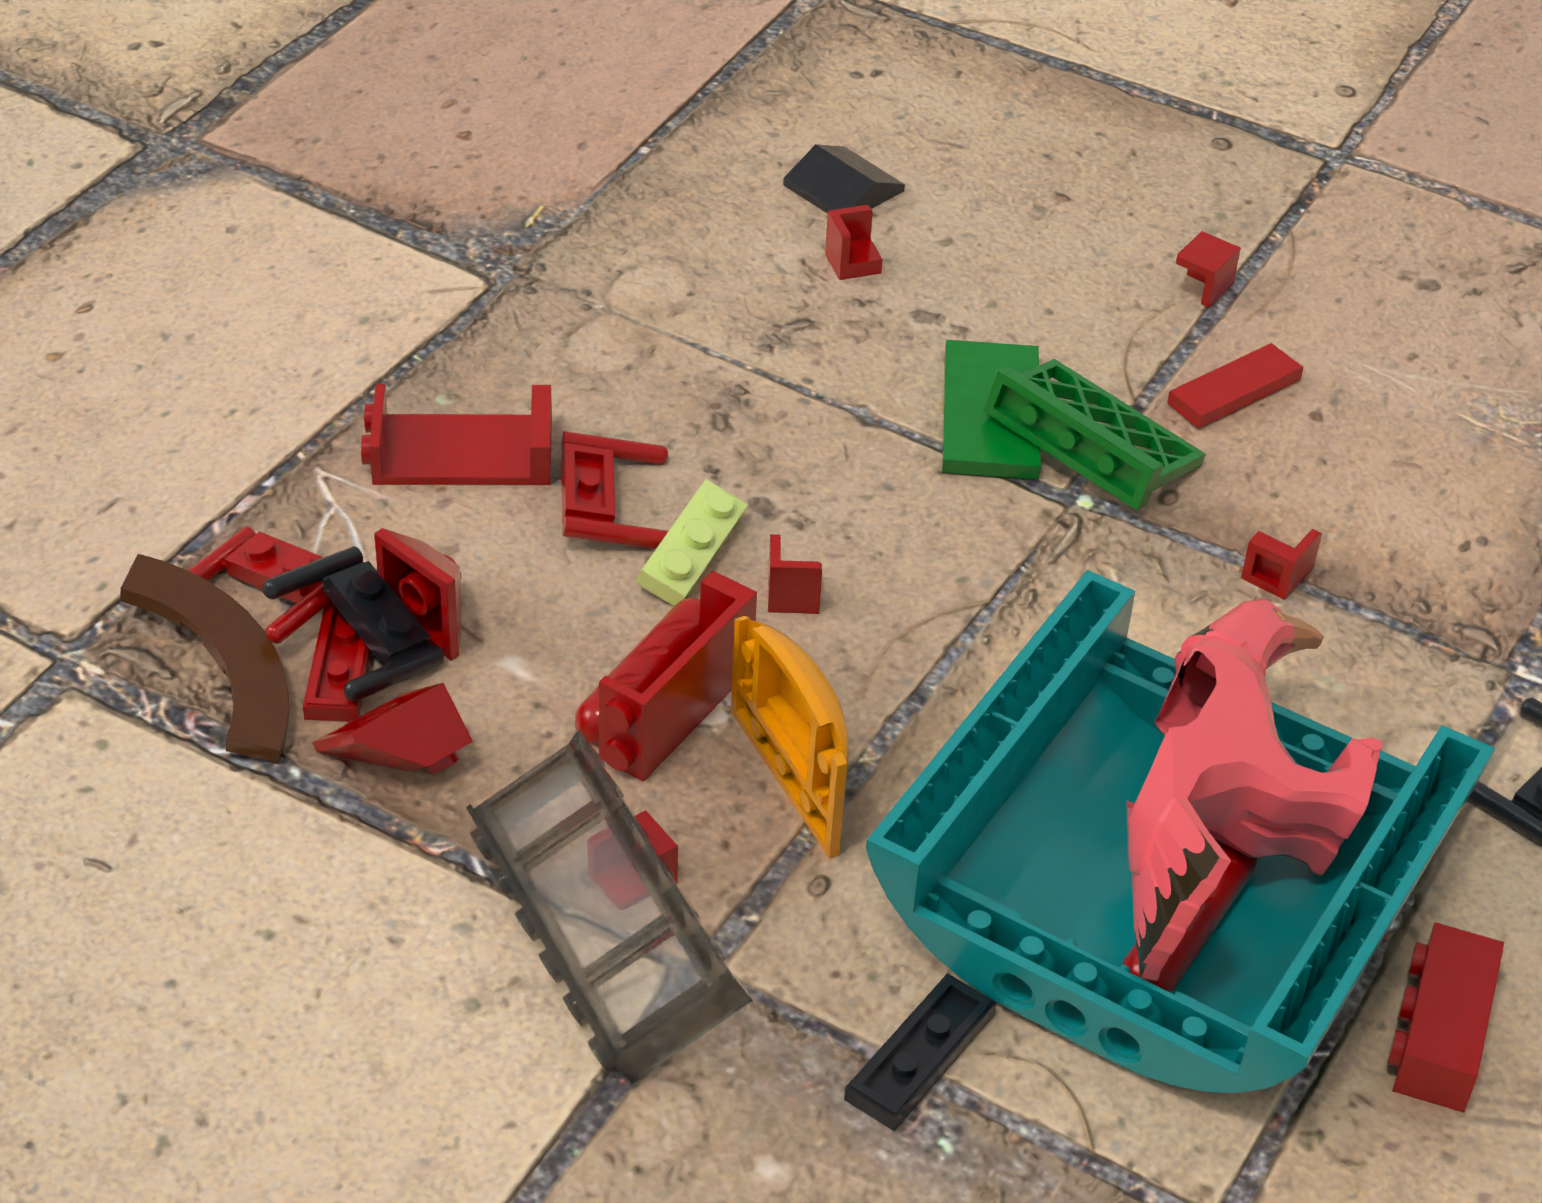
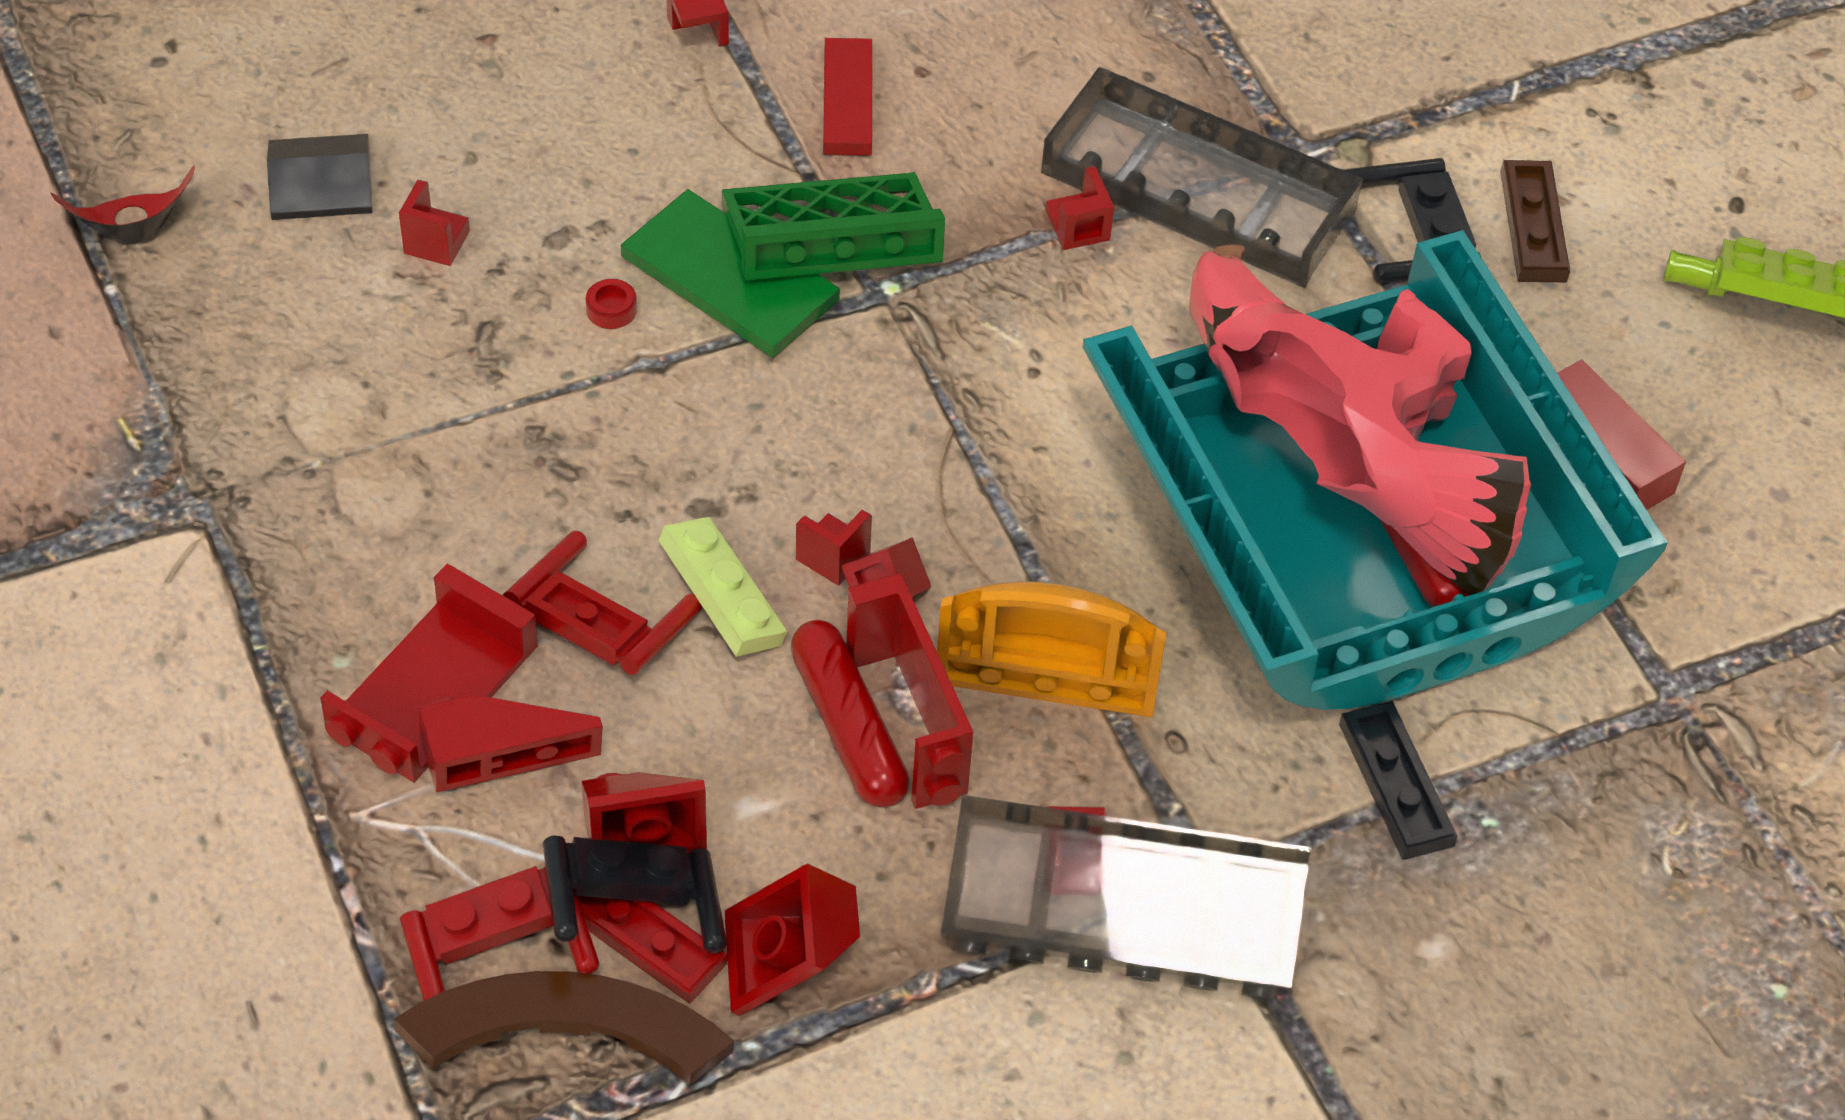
camera: 55 degrees left, 10 degrees up
(425, 486) = (496, 738): none -> red slope
(704, 124) = (102, 216): none -> piece
(797, 618) = (888, 561): none -> red panel
(892, 366) = (611, 303): none -> red tile
(1409, 613) = (1202, 175): none -> window

